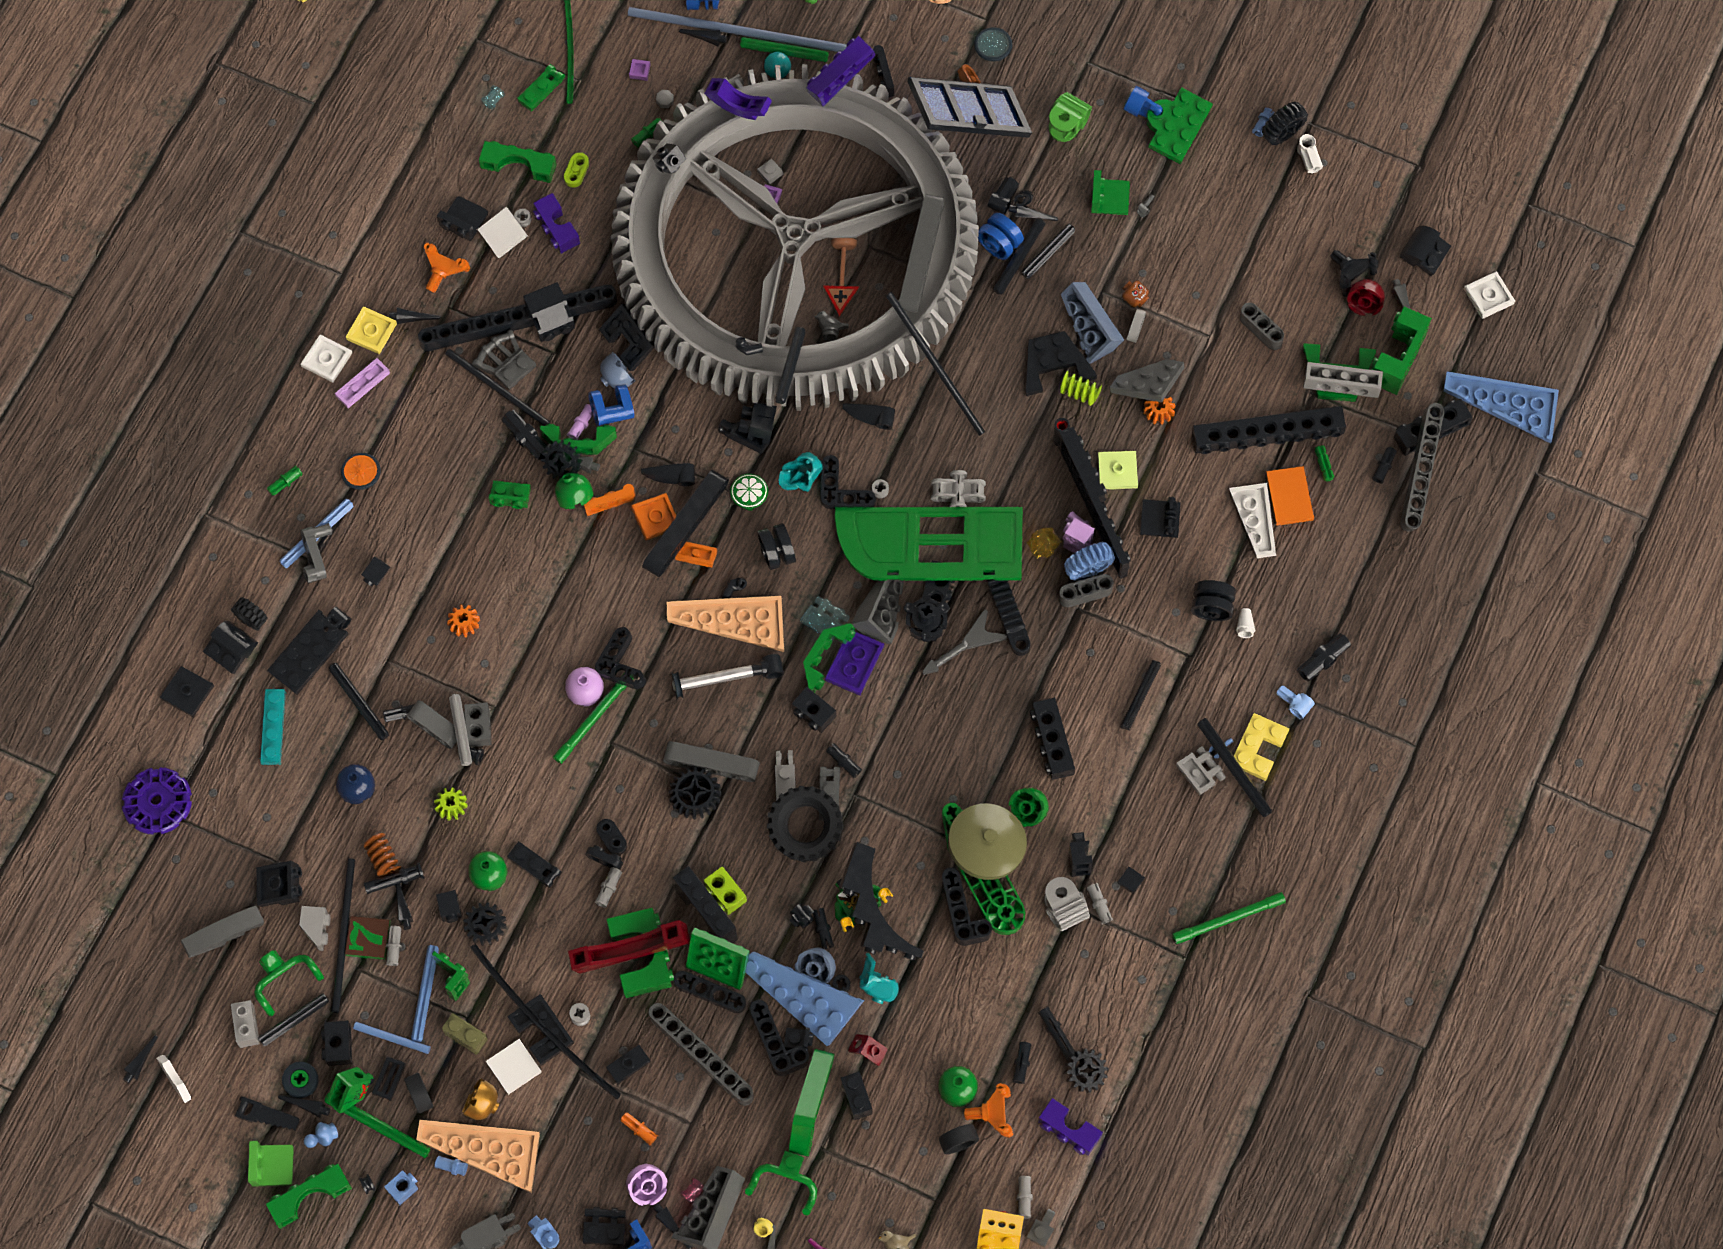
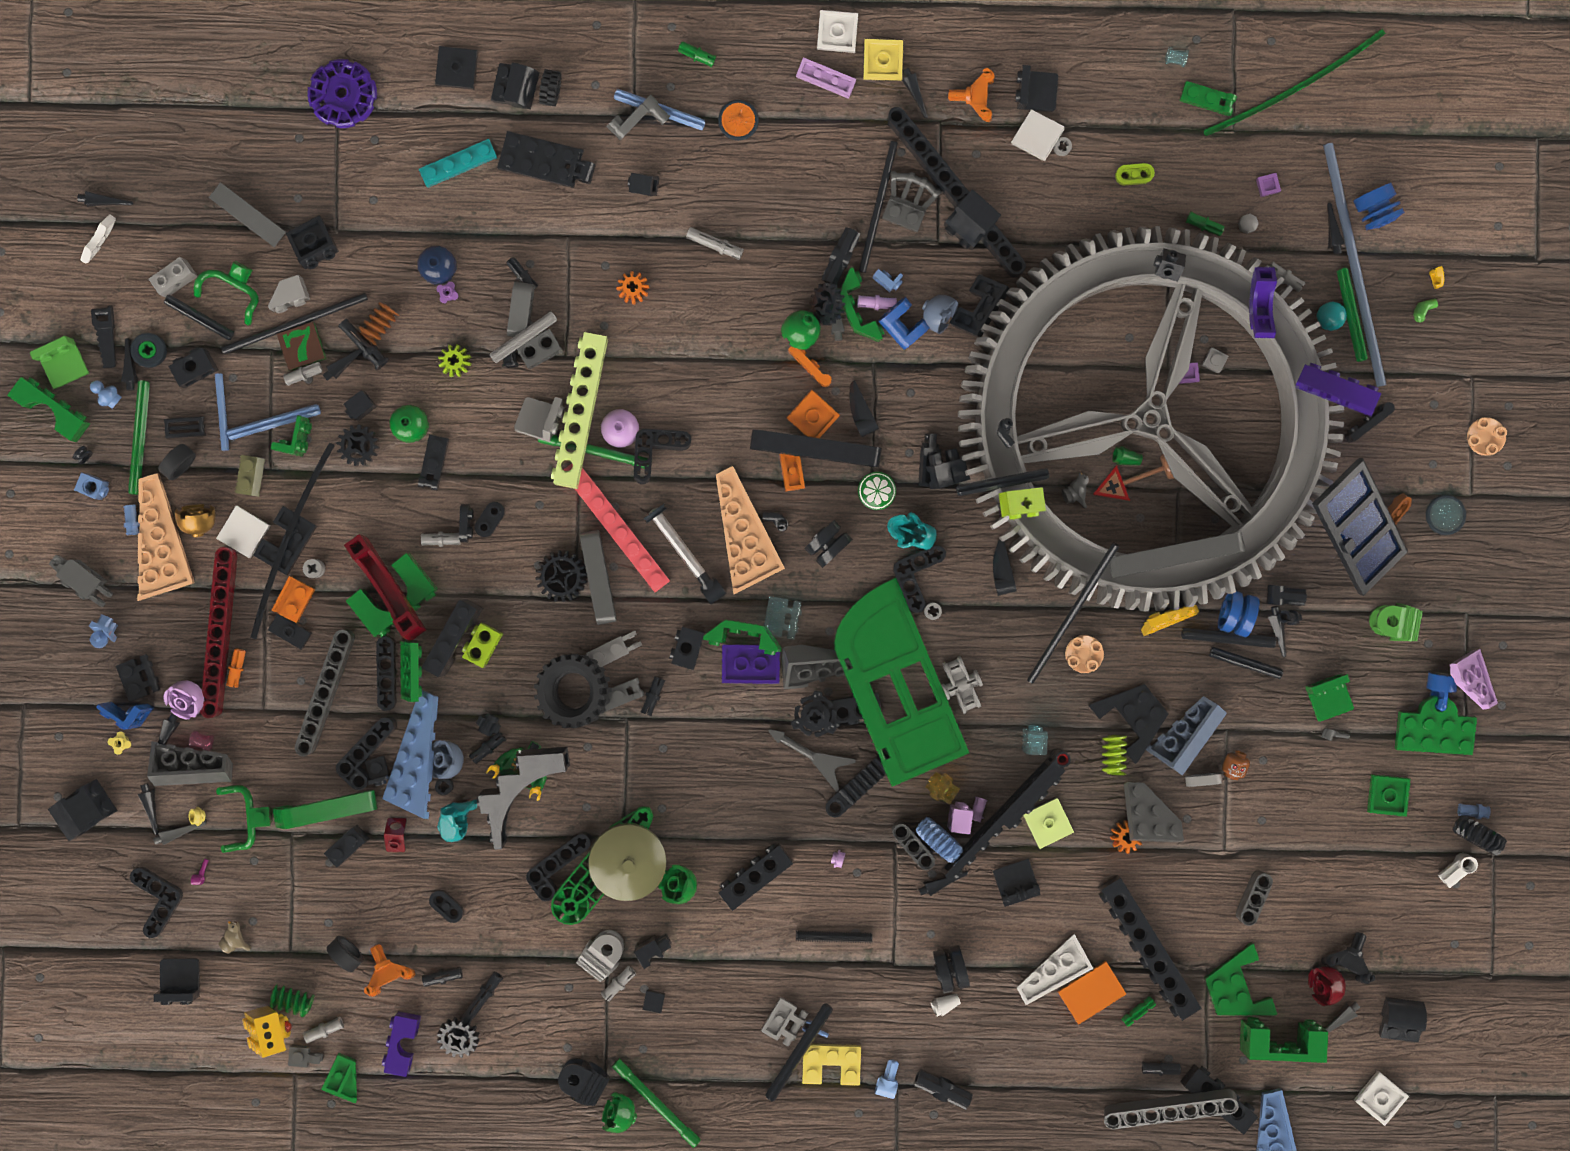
camera: 65 degrees right, 20 degrees up
(349, 1089) = (153, 400): green torso -> none
(358, 701) = (515, 229): black axle -> none
(389, 789) = (447, 297): none -> medium lavender plate
(456, 538) = (715, 243): none -> light grey pin
(496, 156) = (1115, 90): green arch -> none
(500, 671) = (598, 344): none -> yellowish green brick
(510, 494) = (776, 270): green bracket -> none
(542, 748) = (539, 418): none -> light grey bracket
(563, 236) = (1078, 167): dark purple arch -> none
(566, 407) = (884, 279): none -> medium blue bracket
(592, 1120) = (225, 624): none -> dark red beam
(599, 1048) = (293, 599): none -> orange plate
(672, 728) = (620, 532): none -> coral plate
(815, 356) = (1011, 503): none -> lime brick
(819, 274) = (1125, 456): none -> green cone
(955, 1029) = (444, 908): none -> black plate
(957, 1086) = (397, 929): green cylinder -> none
(978, 295) = (1157, 621): none -> yellow plate
(978, 378) = (1084, 654): none -> light nougat dish
(988, 1202) = (290, 1001): none -> green piece
(1036, 446) = (1034, 740): none -> clear light blue brick
(1069, 661) = (837, 859): none -> lavender plate
(1079, 1199) = (342, 1078): none -> green wing
(1132, 587) = (934, 886): none -> black piece
(1142, 75) = (1473, 678): none -> lavender plate
(1183, 967) = (589, 1085): none -> black piece
(1219, 184) = (1388, 795): none -> green tile
(1222, 952) = (618, 1114): none -> green cylinder
(1343, 379) = (1227, 1001): light grey brick -> none

